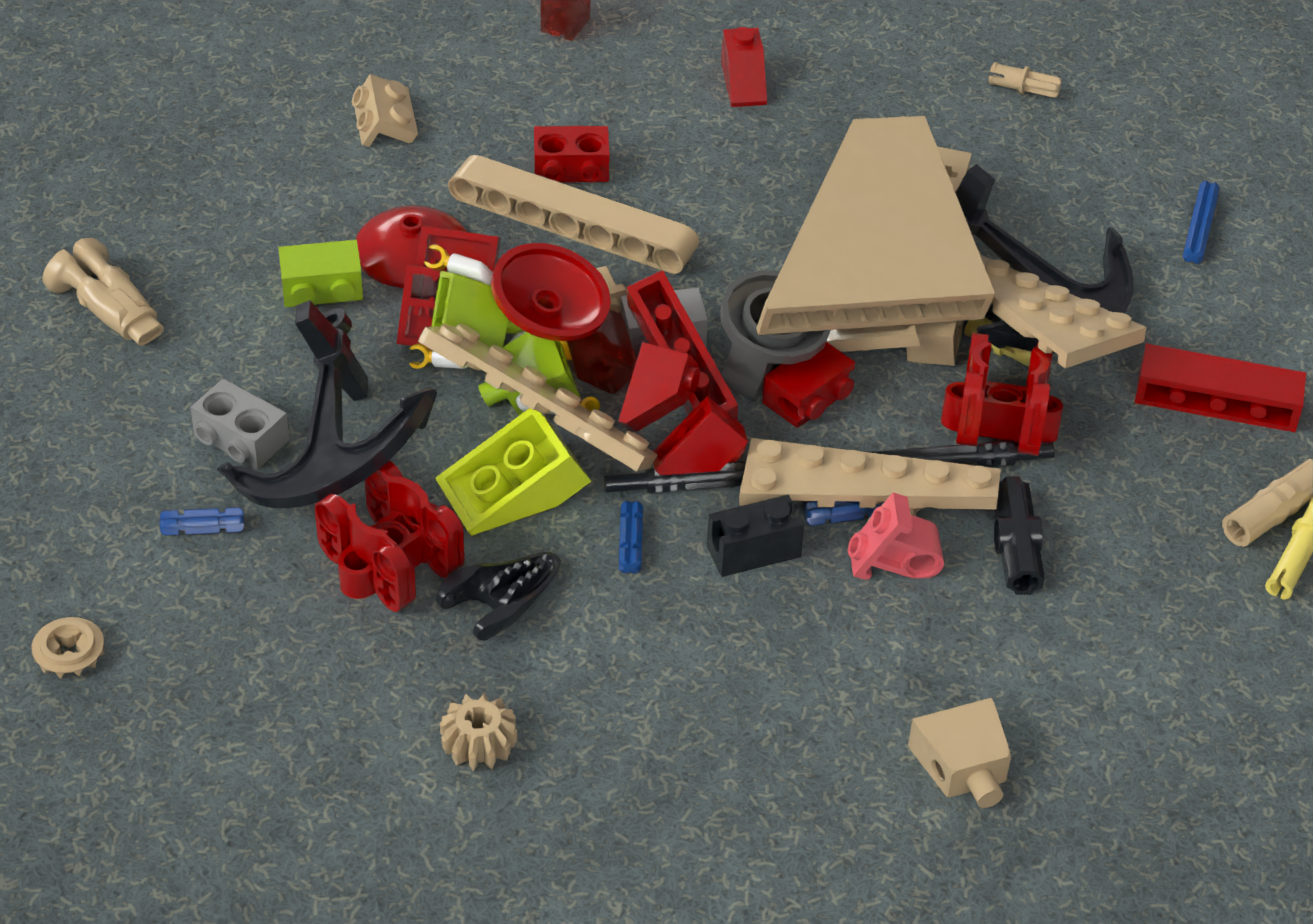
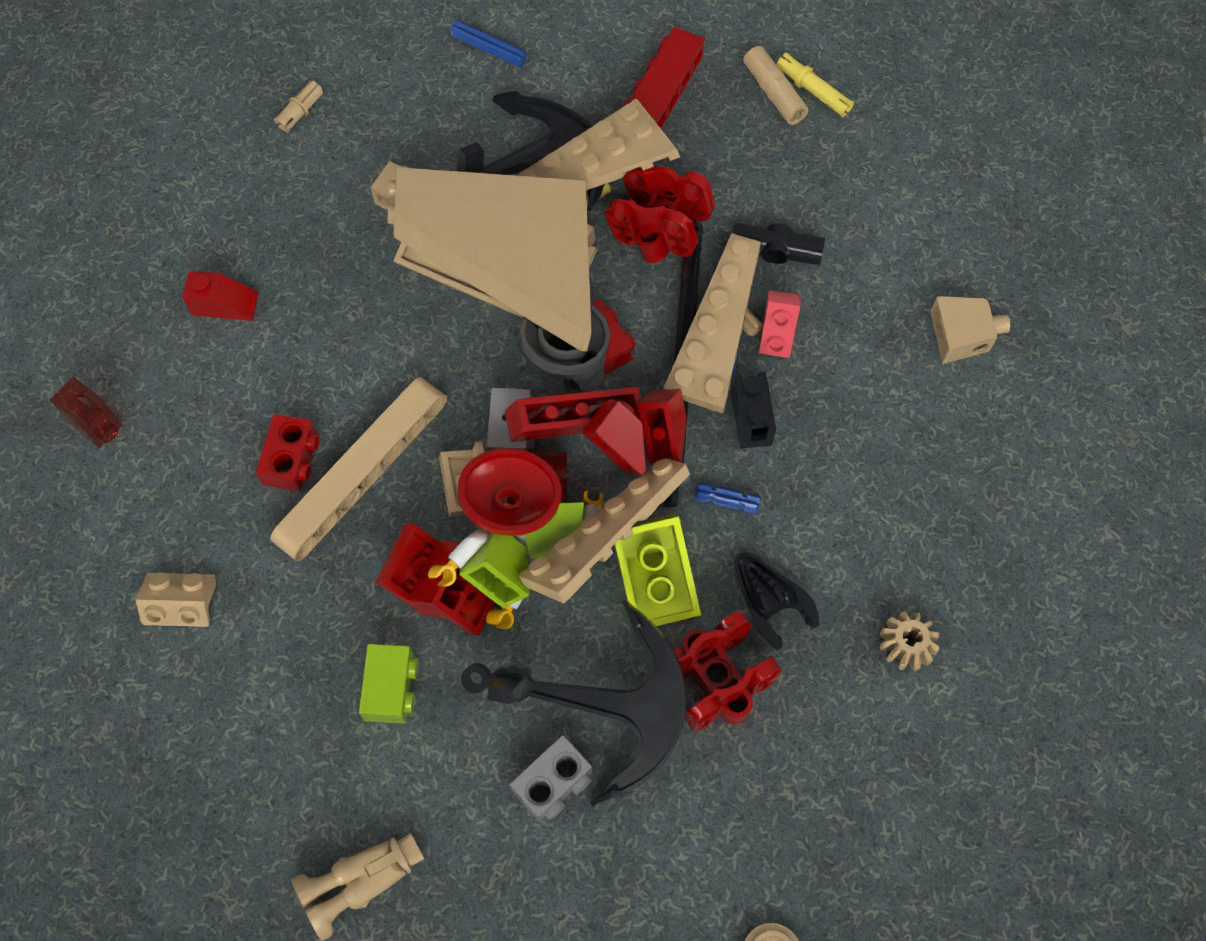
camera: 75 degrees left, 20 degrees up
(202, 521) = (650, 826): blue axle -> none
(393, 238) = (352, 625): red dish -> none

